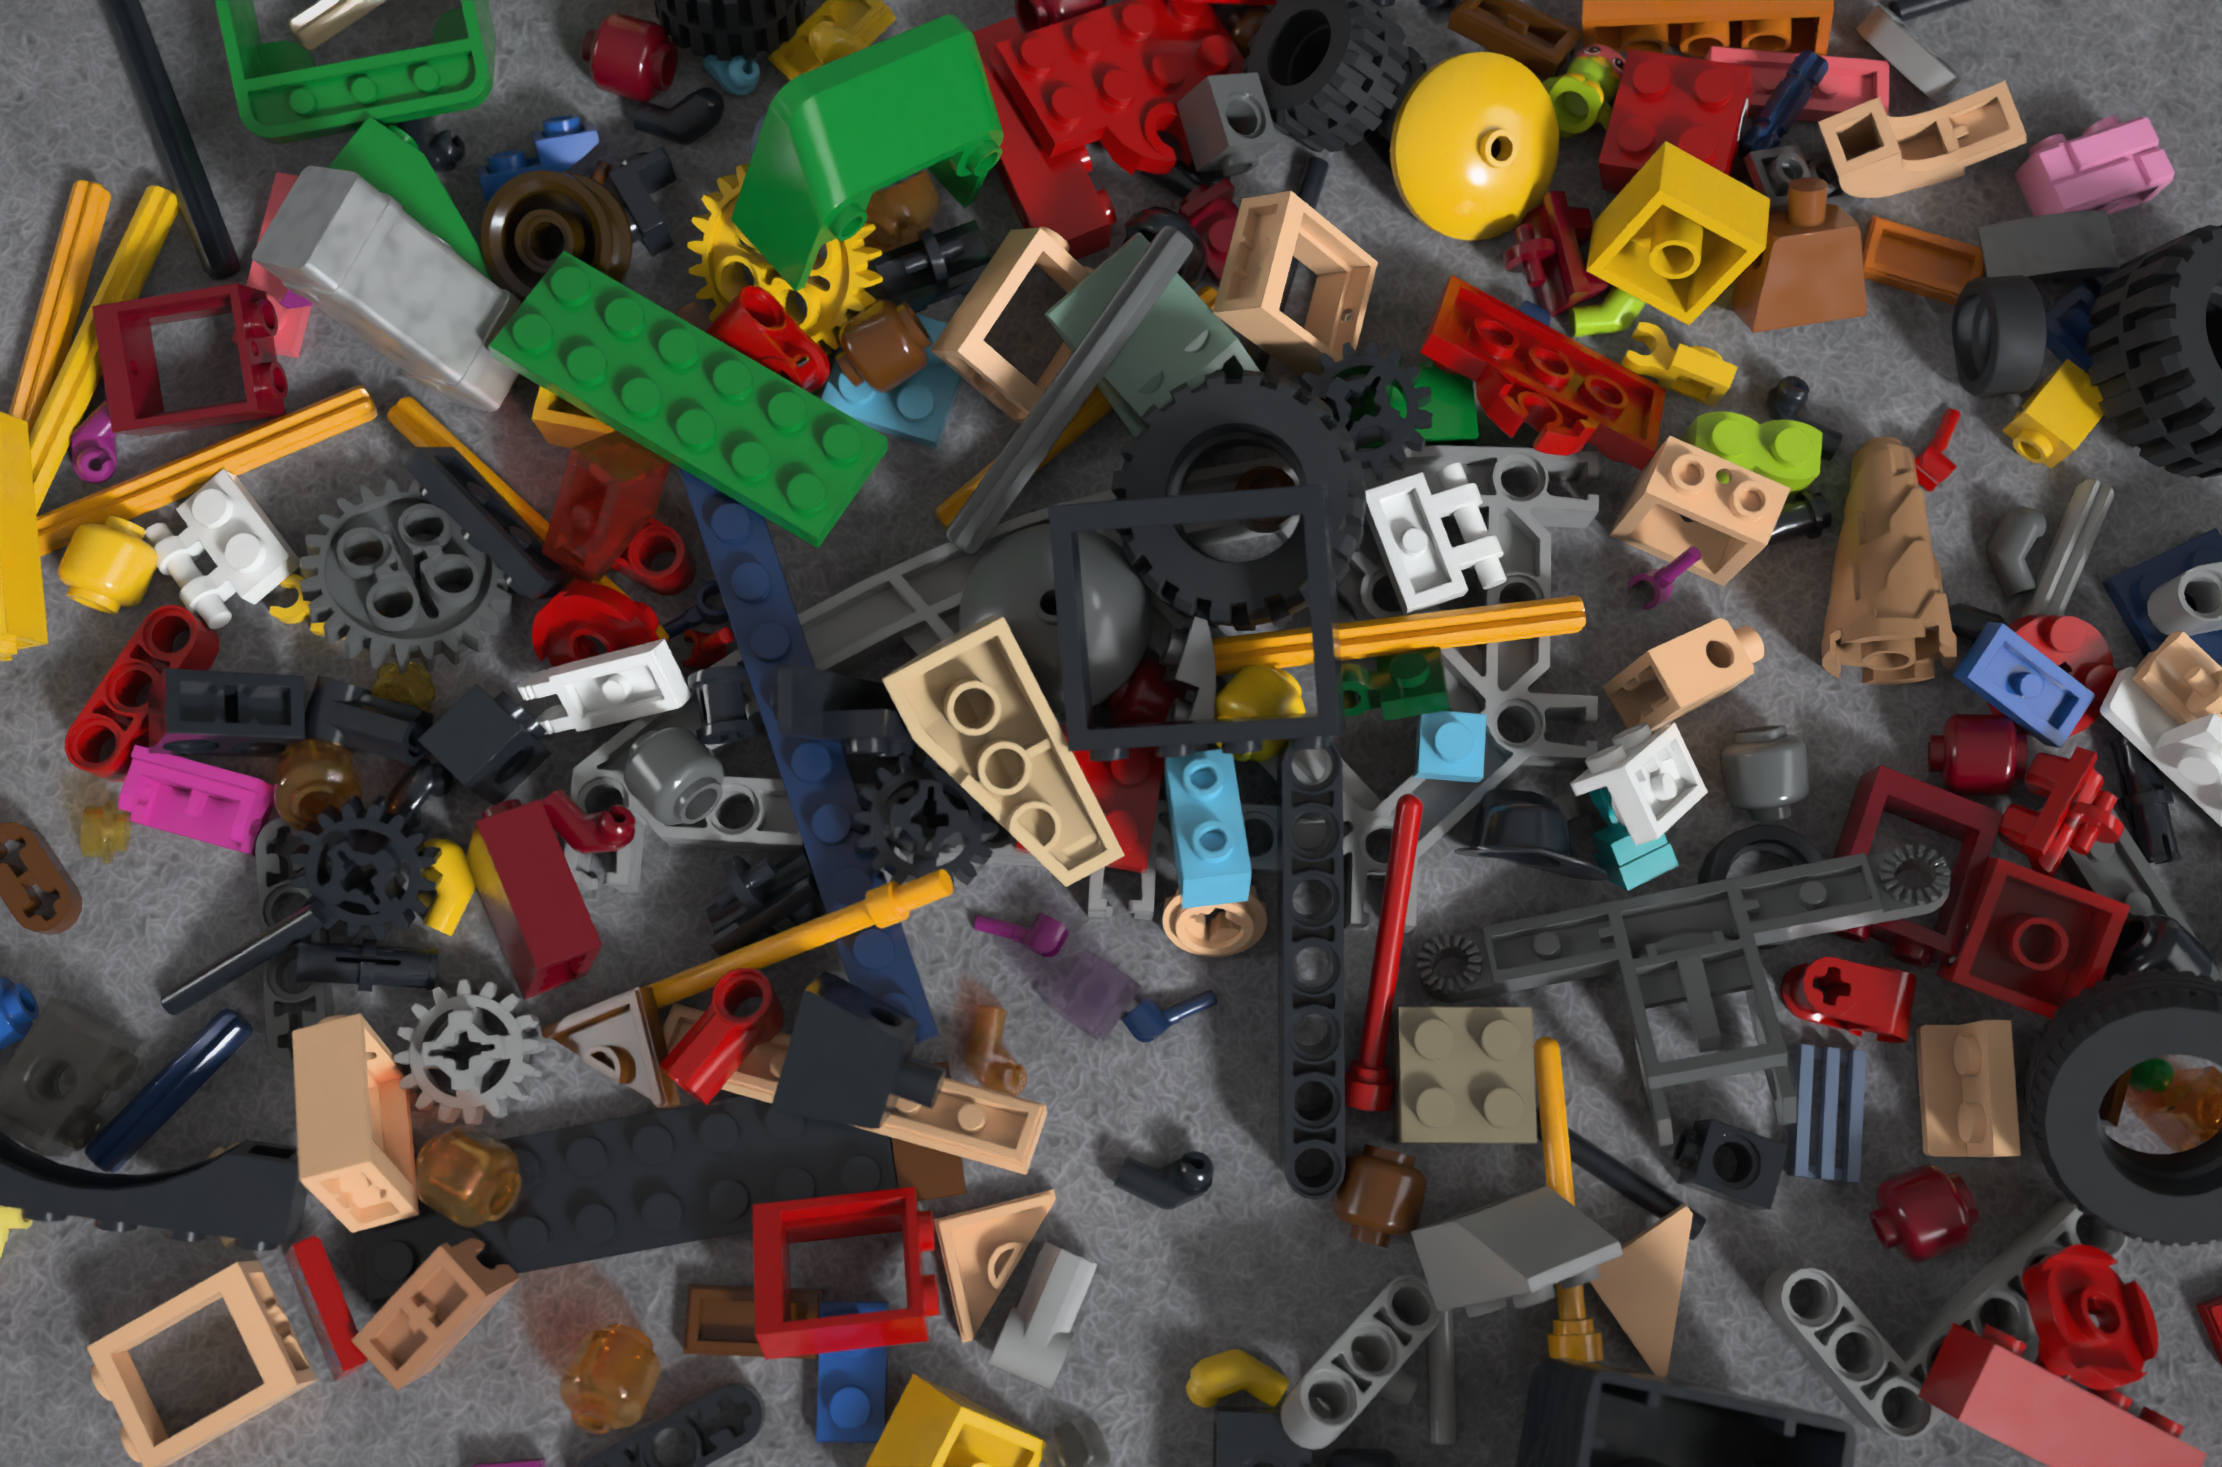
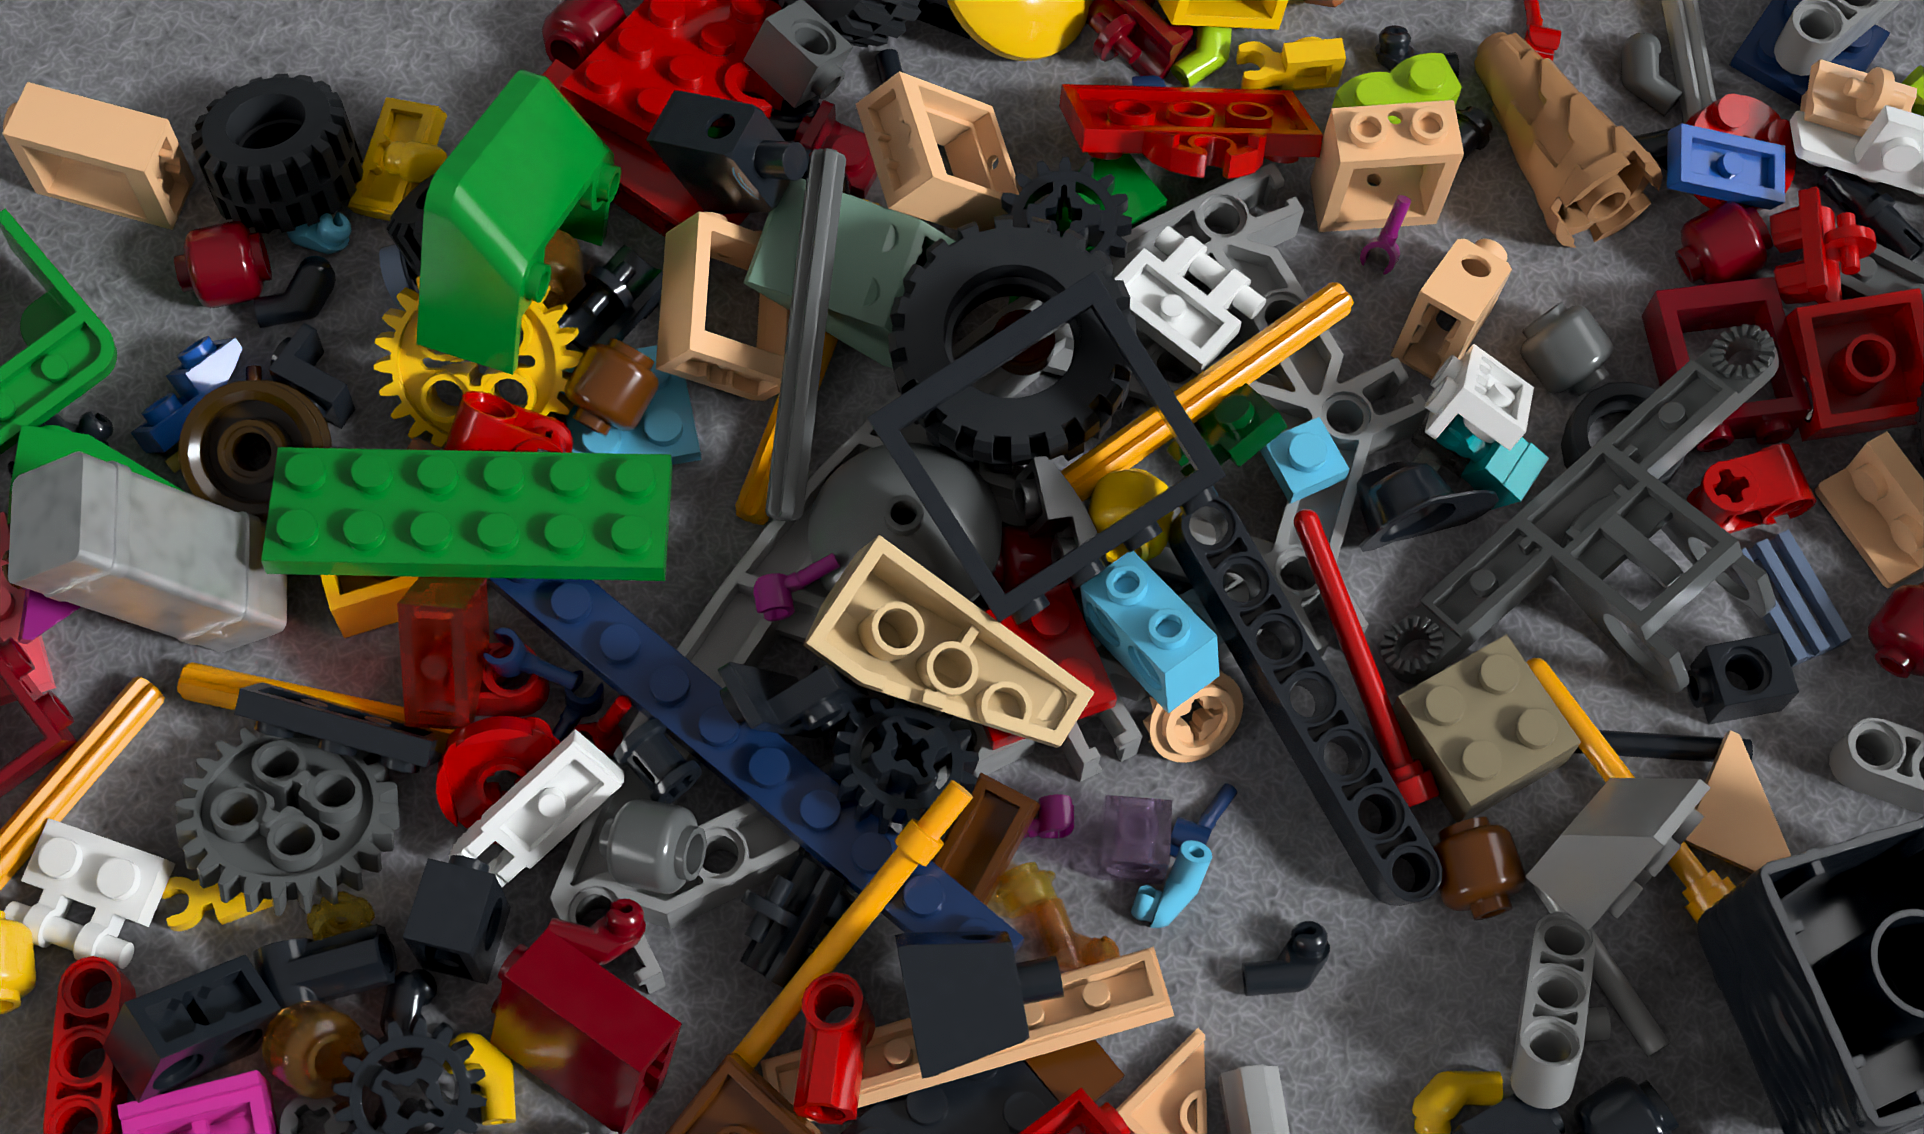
camera: 30 degrees left, 10 degrees down
(666, 549) = (522, 661): none -> dark blue hand
(909, 610) = (775, 590): none -> magenta hand
(966, 924) = (986, 836): none -> reddish brown tile
(980, 985) = (1024, 889): none -> clear yellow plate
(1101, 205) = (726, 153): none -> black torso
(1113, 1060) = (1180, 888): none -> medium azure arm

